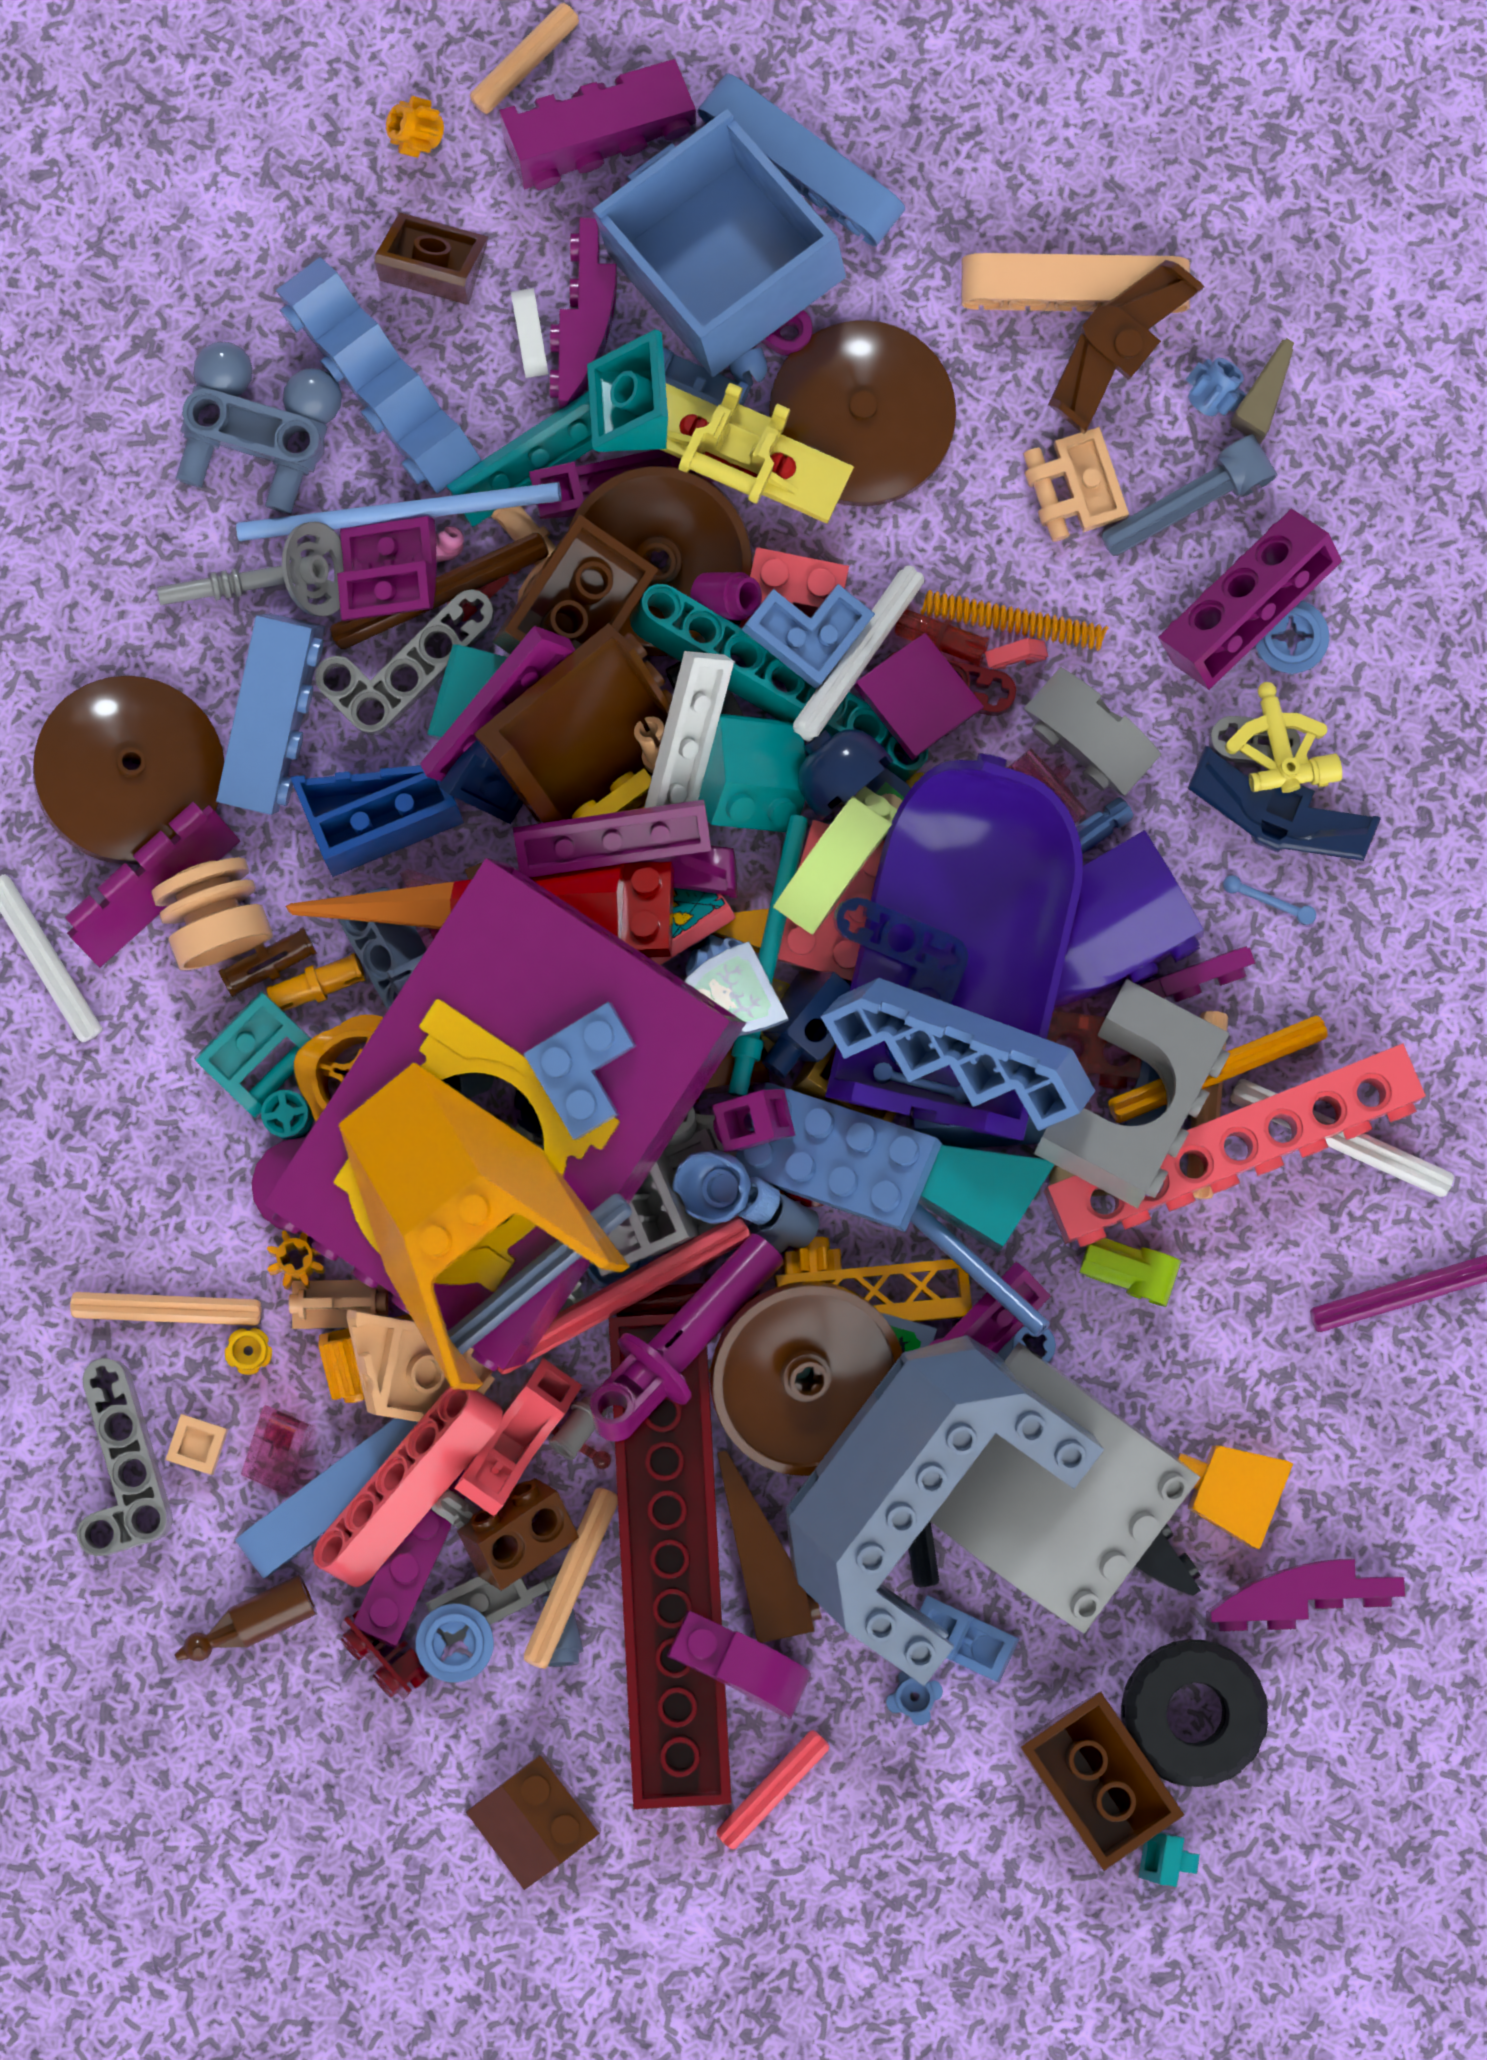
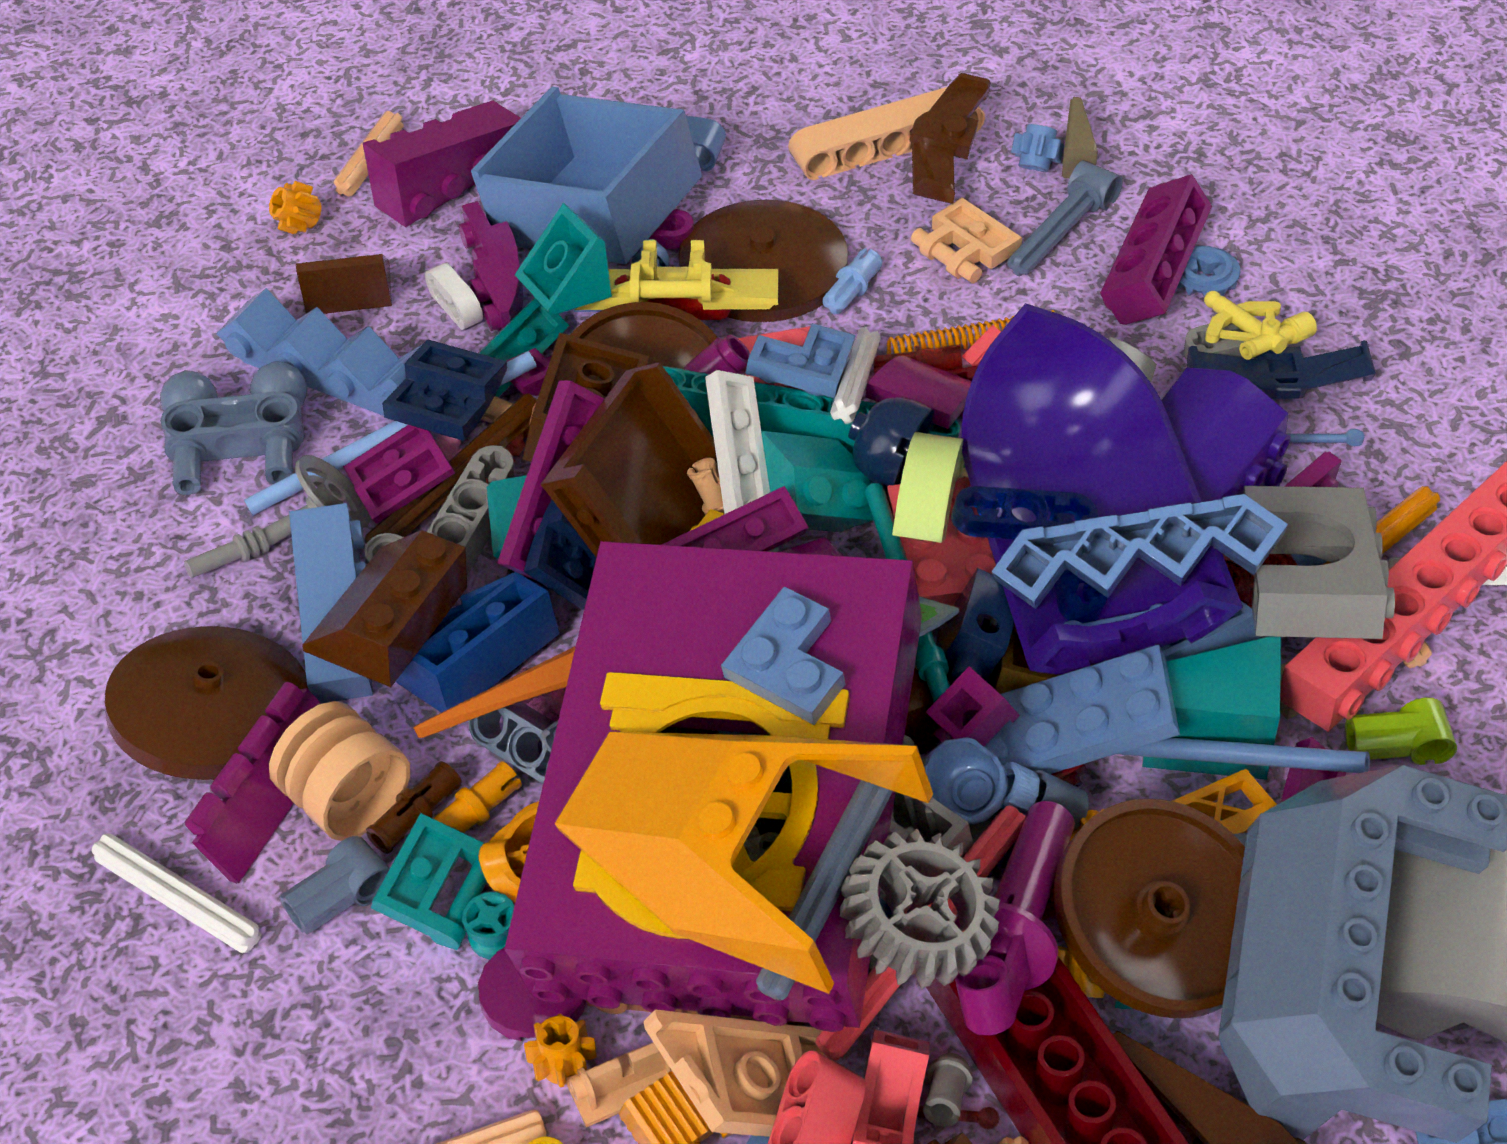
camera: 20 degrees left, 35 degrees down
(184, 1014) = (349, 877): none -> sand blue piece
(306, 769) = (392, 607): none -> reddish brown slope
(460, 500) = (445, 389): none -> dark blue slope
(560, 1347) = (926, 938): none -> light grey gear
(932, 492) = (852, 280): none -> light blue axle

